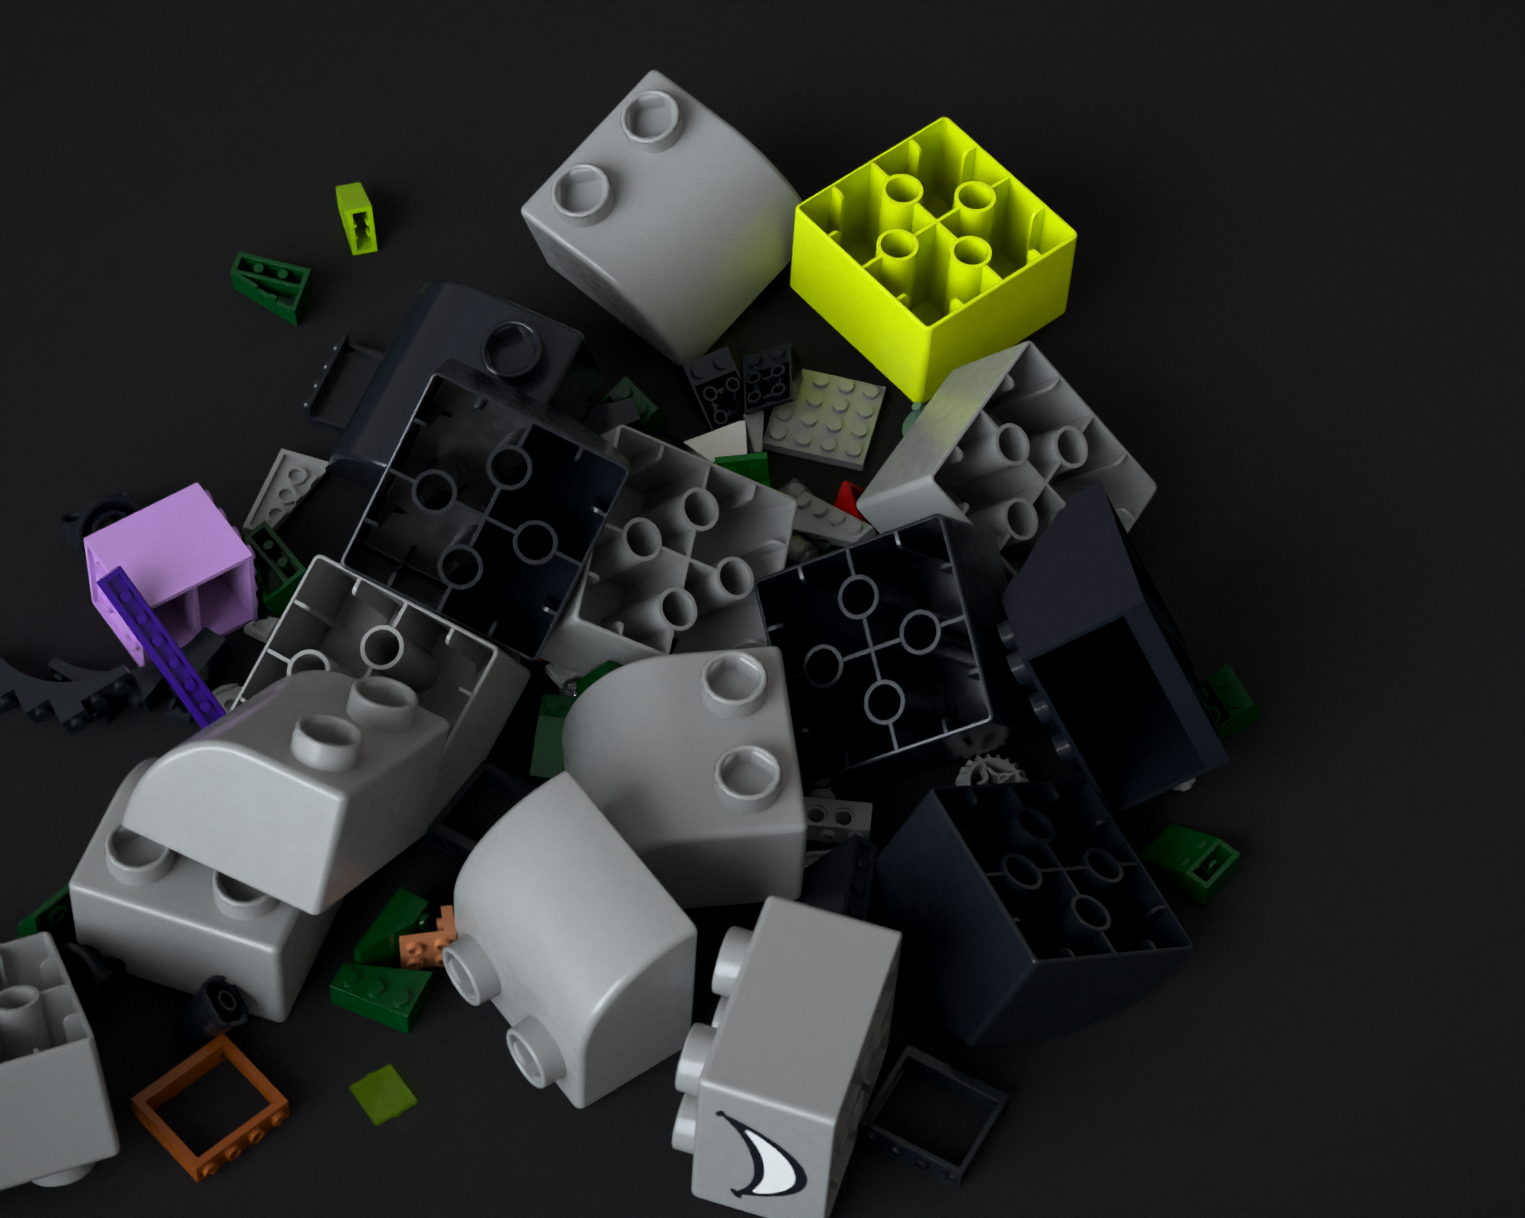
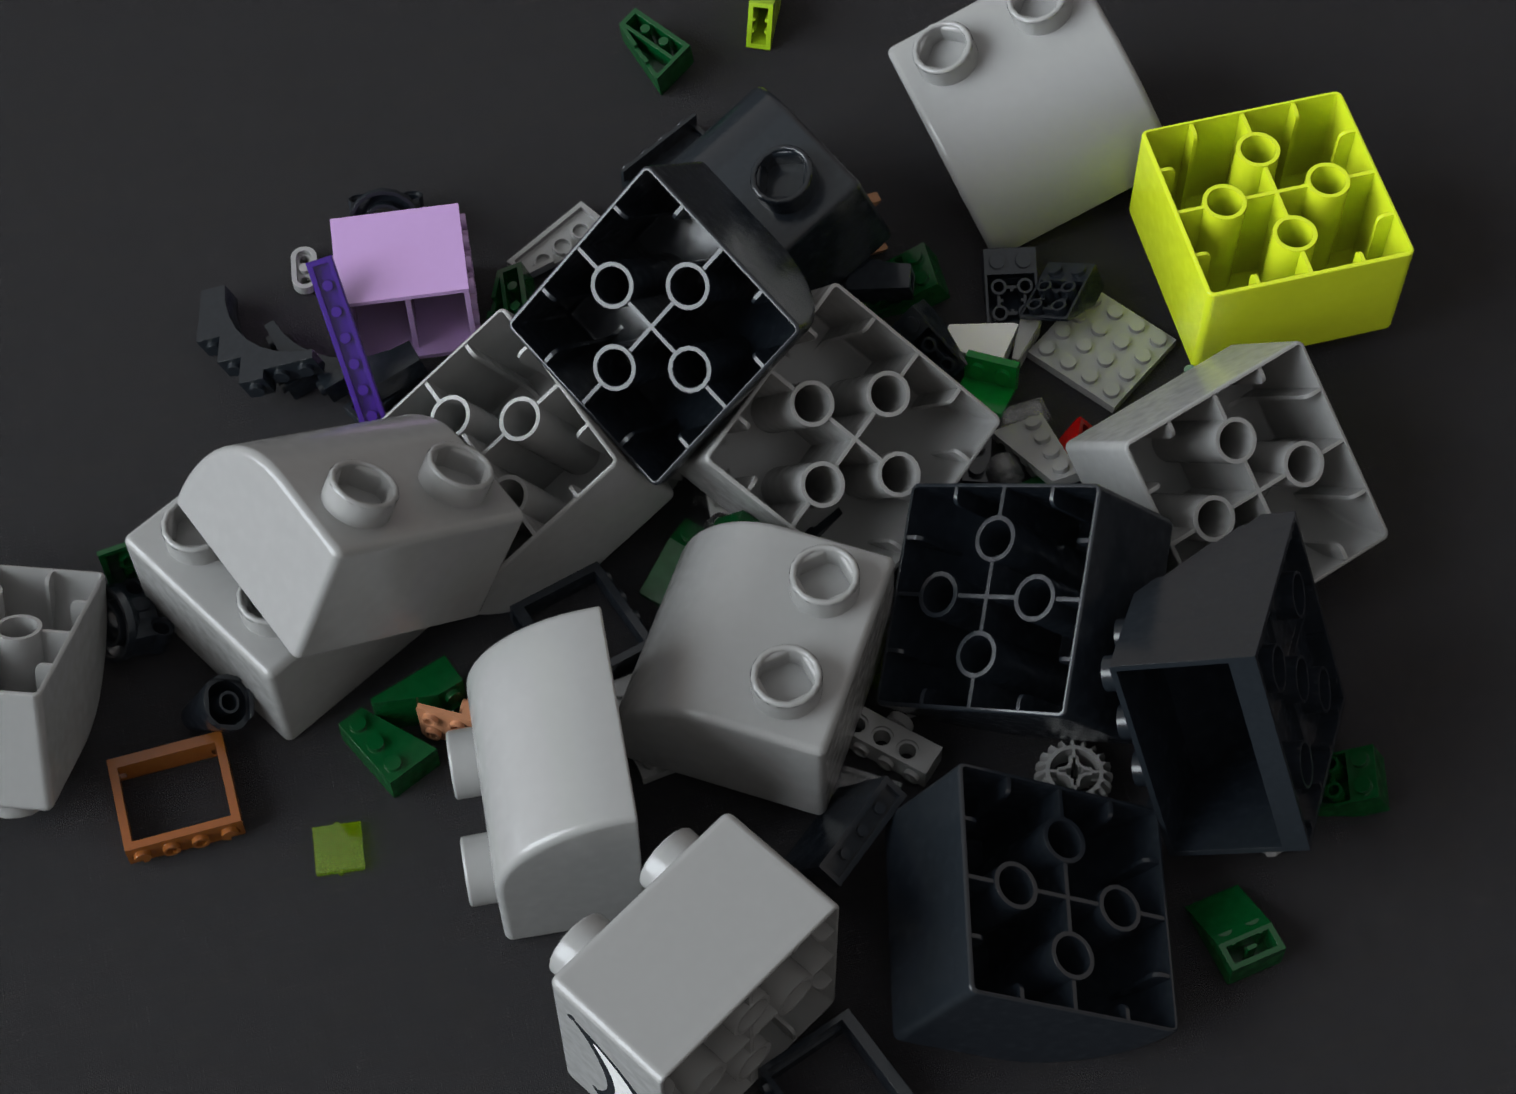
camera: 30 degrees right, 5 degrees up
(53, 604) = (299, 270): none -> light grey plate

